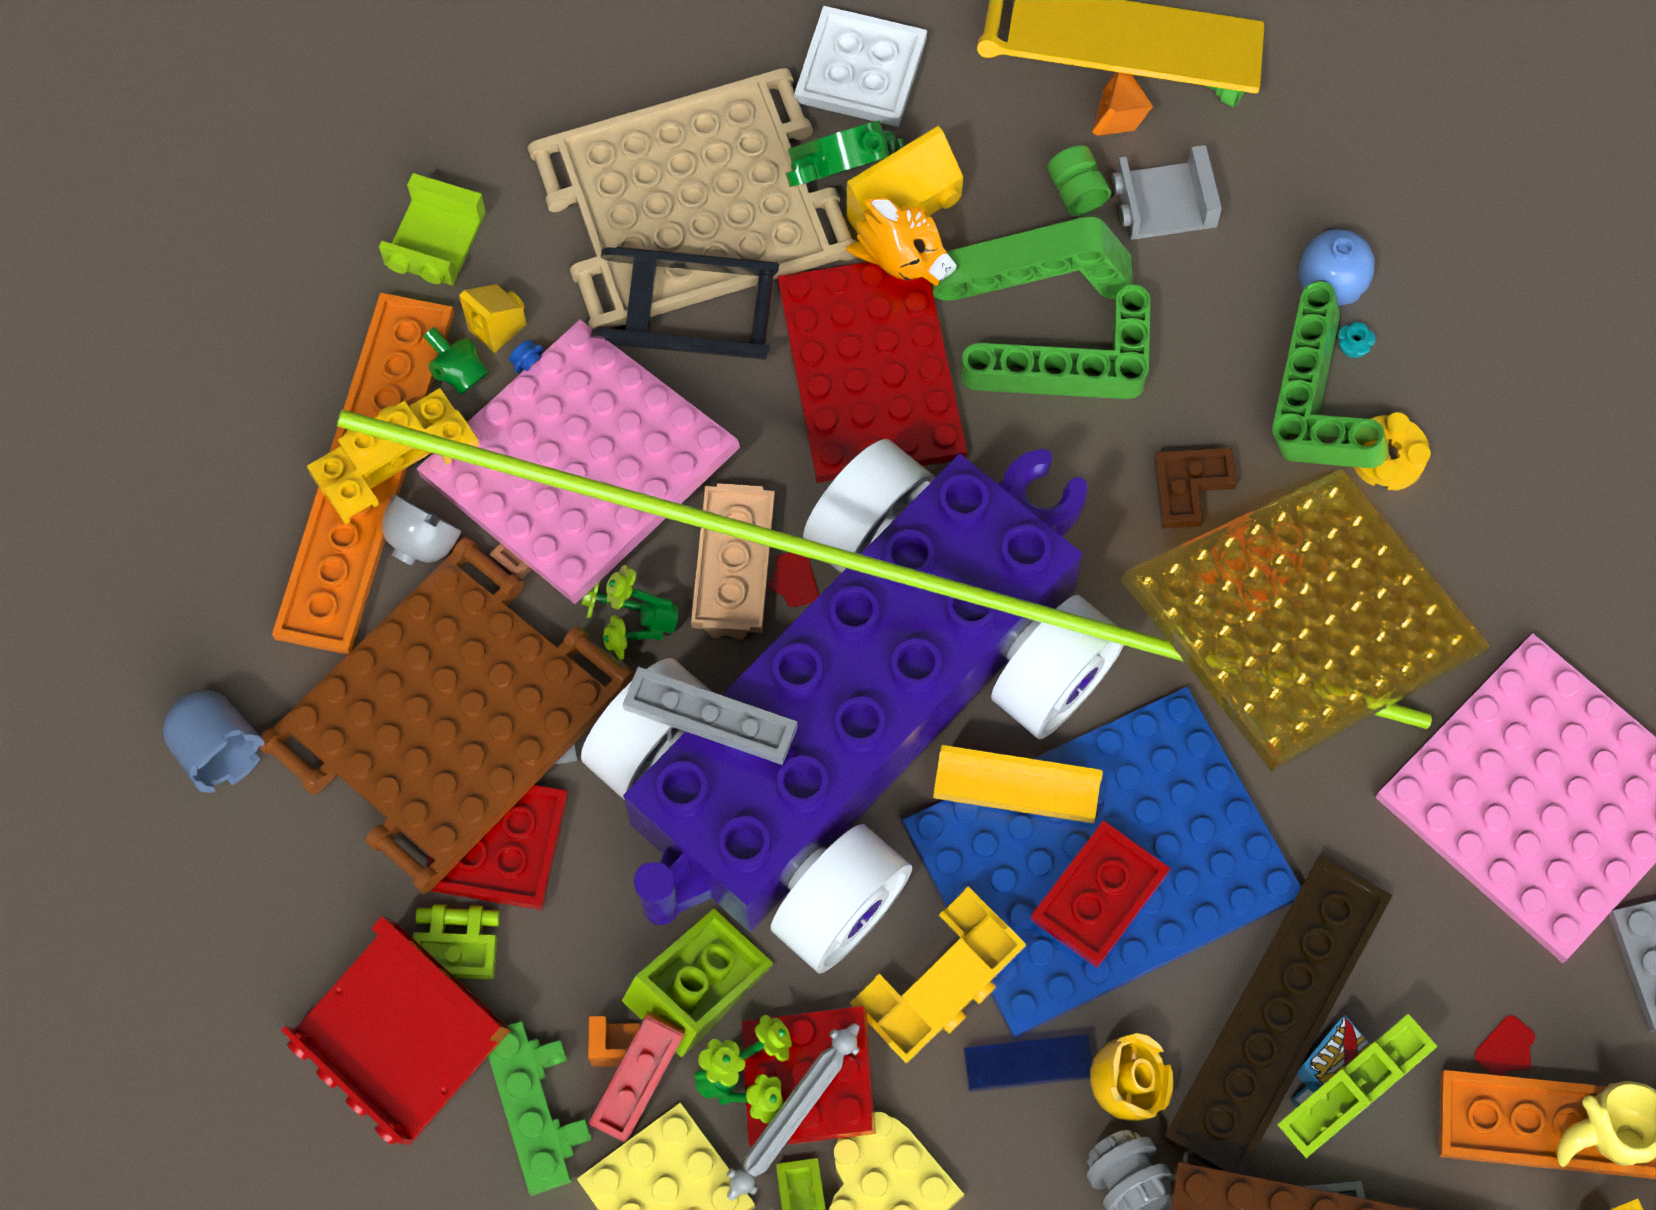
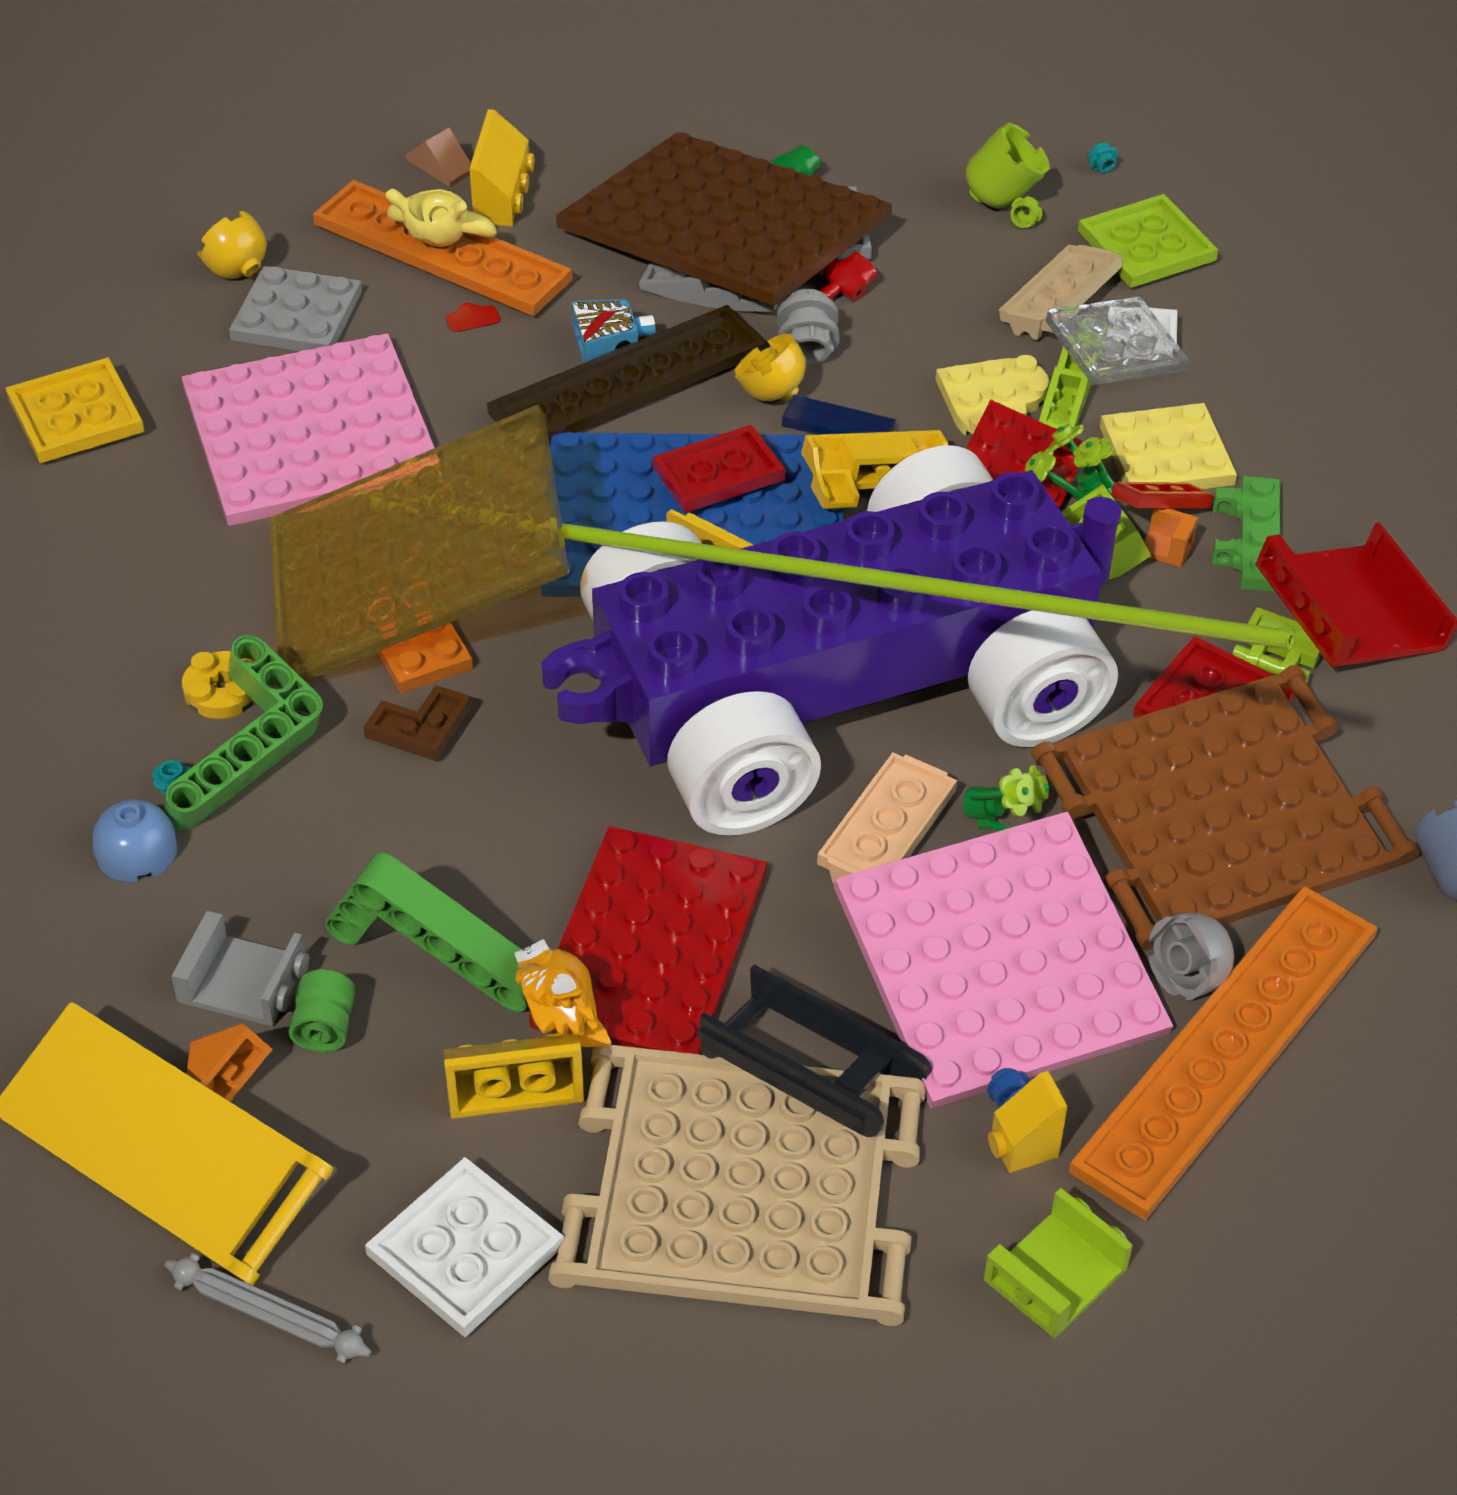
camera: 155 degrees left, 20 degrees down
(365, 461) = (1198, 1027): yellow bracket -> none
(455, 363) = (1090, 1101): green piece -> none
(710, 715) = (998, 555): light grey plate -> none
(793, 1112) = (1044, 426): light grey wheel -> none
(794, 580) = (833, 801): red sticker -> none
(841, 152) = (560, 1106): green piece -> none
(1070, 361) = (494, 863): bright green beam -> none
(1357, 1086) = (621, 295): lime slope -> none

